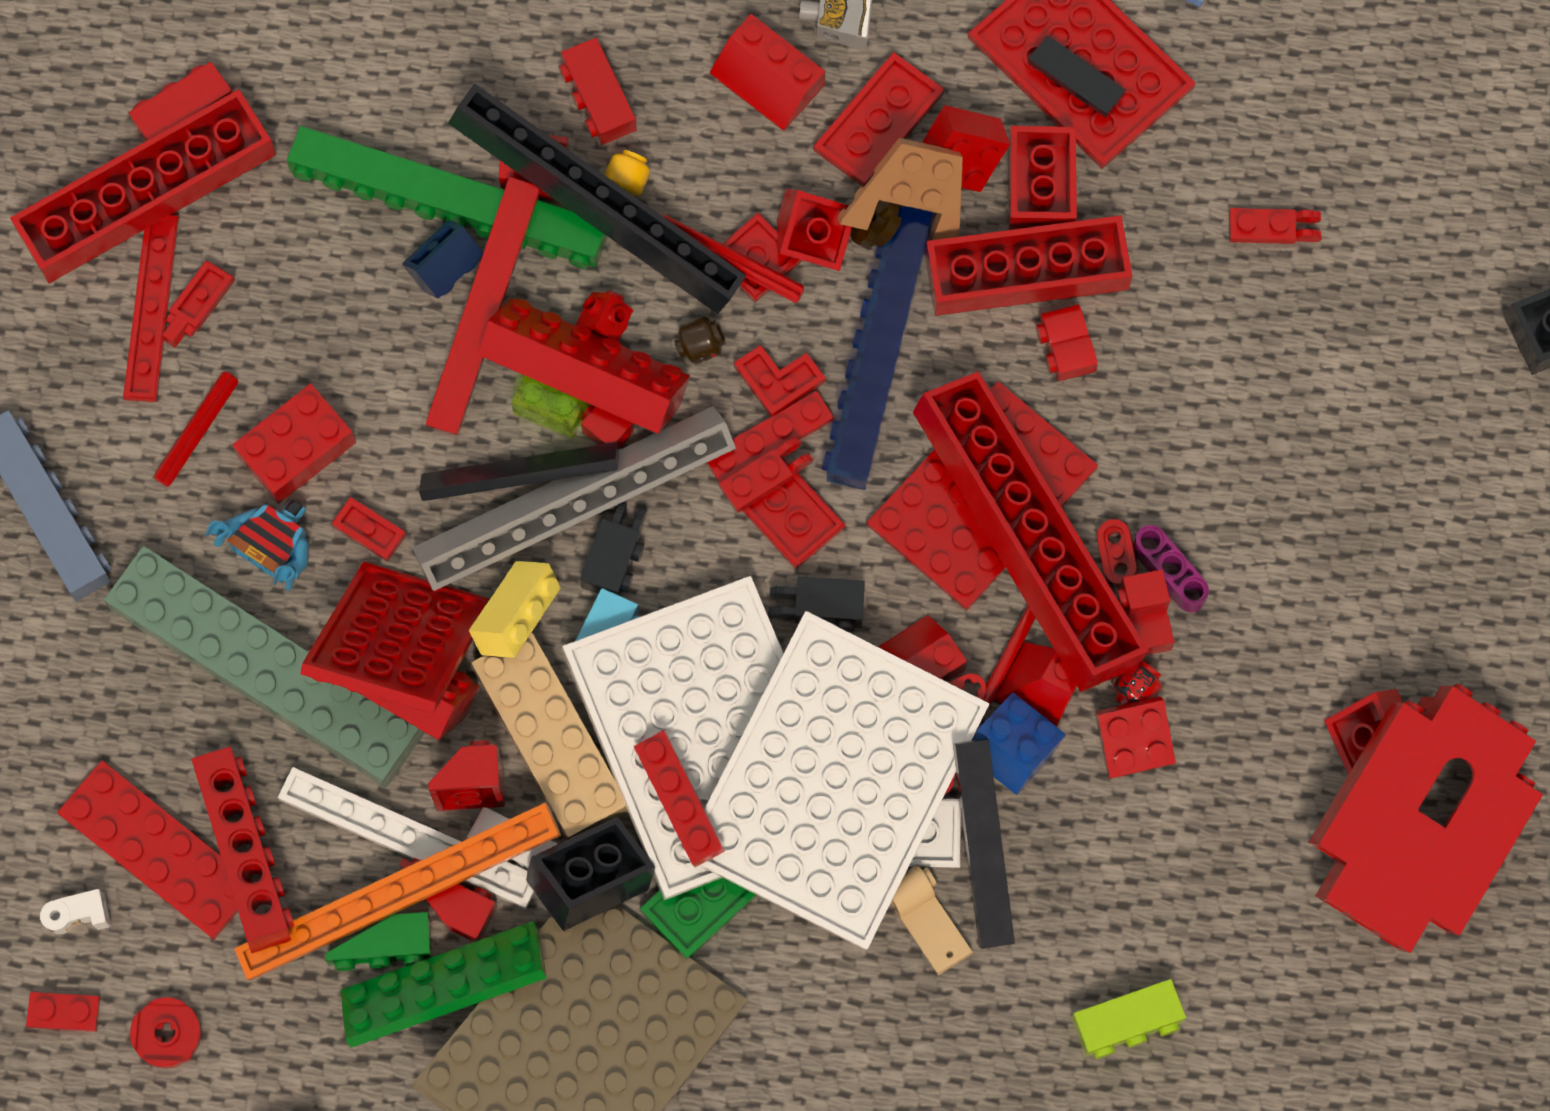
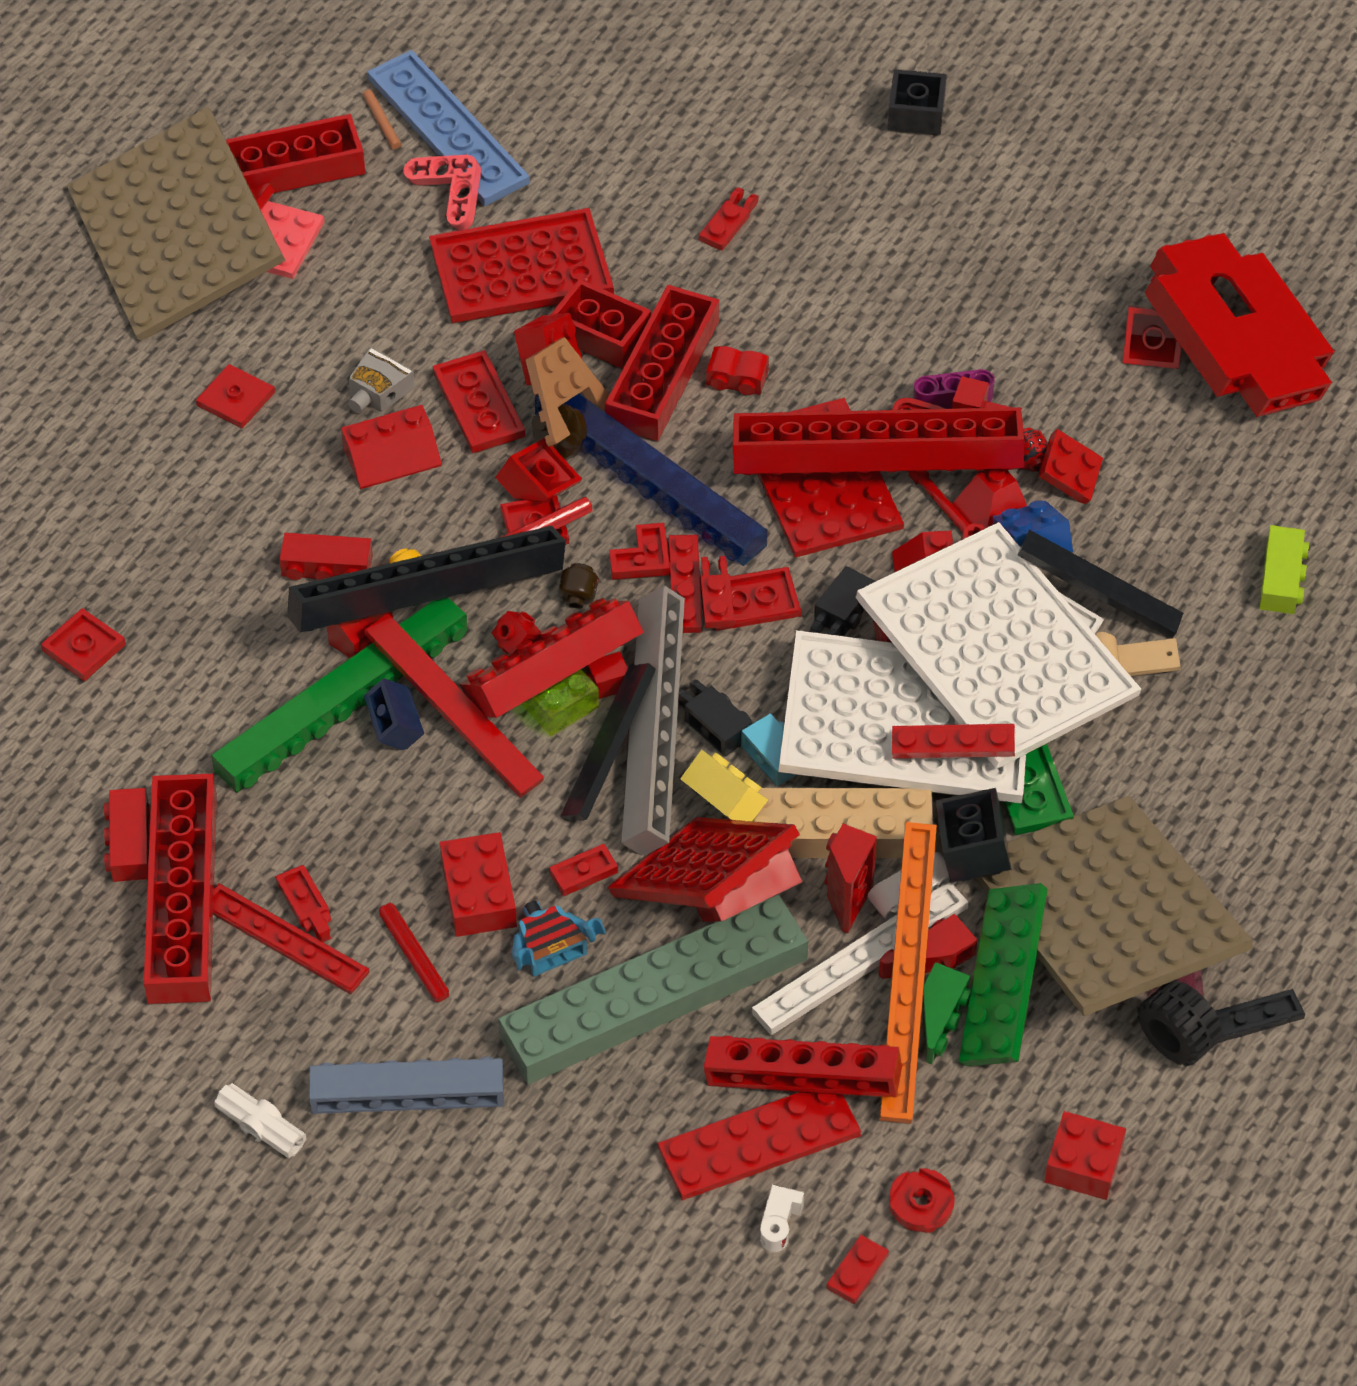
camera: 60 degrees left, 20 degrees down
(1076, 76) = (535, 267): black tile -> none

